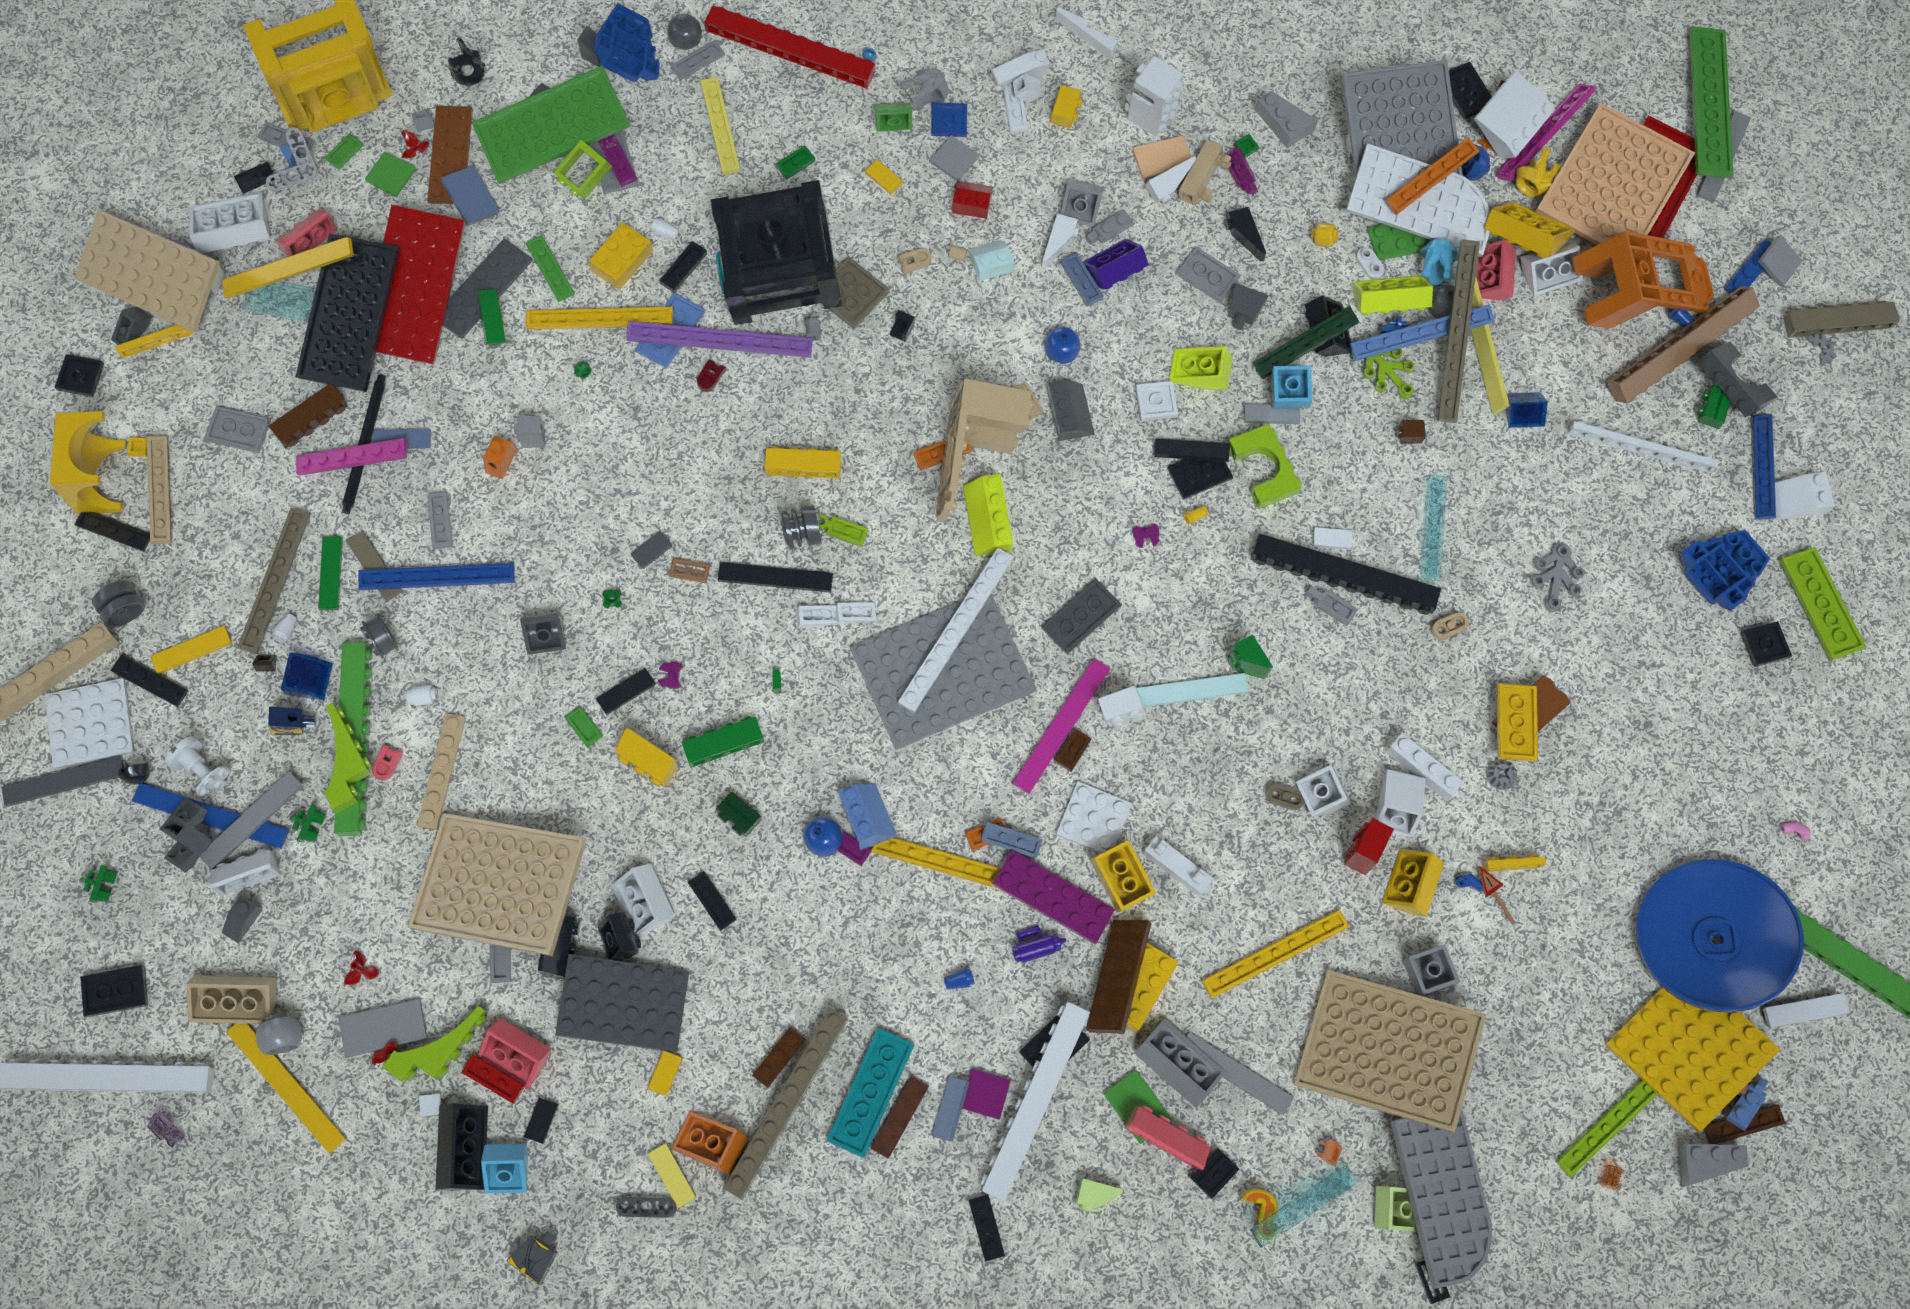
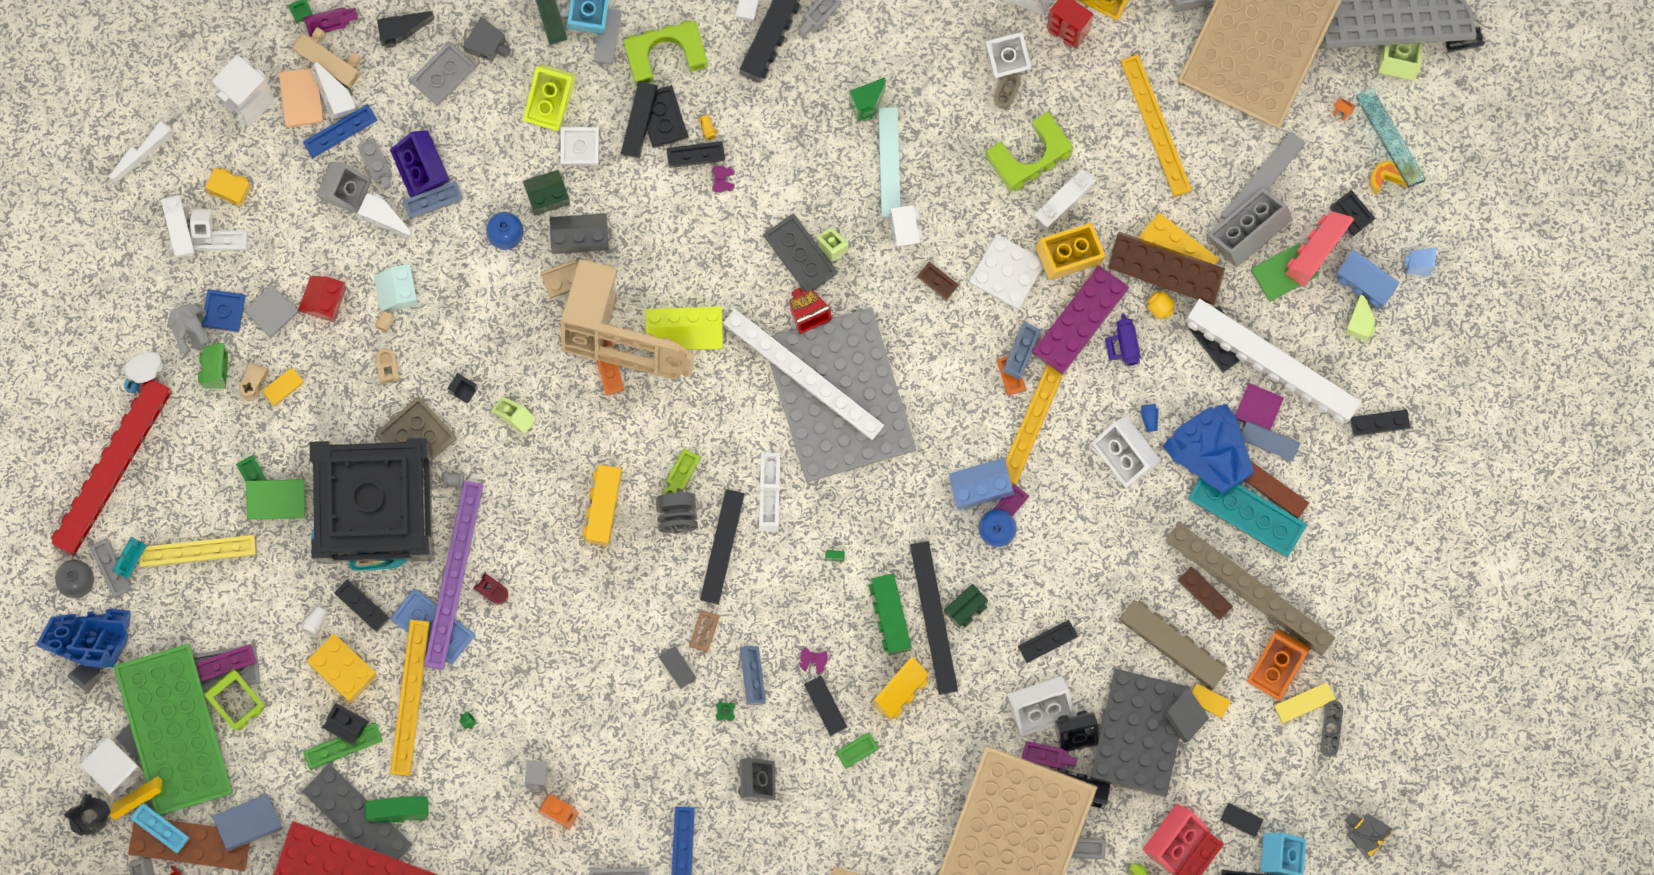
camera: 80 degrees left, 5 degrees up
(458, 124) = (160, 828): none -> medium azure plate
(484, 101) = (136, 798): none -> yellow tile
(510, 79) = (110, 767): none -> white slope
(568, 265) = (345, 724): none -> black plate
(591, 912) = (1047, 755): none -> magenta hinge
(643, 1047) = (1186, 715): none -> dark grey tile
(648, 618) = (752, 675): none -> sand blue plate
(710, 69) = (129, 557): none -> teal hinge
(719, 1028) = (1173, 645): none -> dark tan brick
(723, 785) = (933, 618): none -> black tile
(773, 172) = (275, 499): none -> bright green tile
(881, 374) = (514, 414): none -> yellowish green slope
(885, 58) = (143, 367): none -> white tile
(886, 149) = (255, 378): none -> tan piece
(919, 958) = (1126, 451): none -> white slope
(933, 1047) = (1212, 448): none -> blue wedge
(1022, 626) = (808, 310): none -> red torso
(1061, 726) = (911, 288): dark pink tile -> none
(1081, 977) = (1161, 305): none -> yellow head
(1093, 641) = (832, 244): none -> yellowish green slope
(1105, 376) = (546, 192): none -> dark green slope
(1136, 194) = (340, 131): none -> blue tile
(1139, 1194) = (1366, 280): none -> medium blue slope
(1166, 506) = (695, 154): none -> black plate
(1170, 1252) = (1420, 261): none -> light blue slope
(1229, 851) = (1015, 173): none -> lime arch

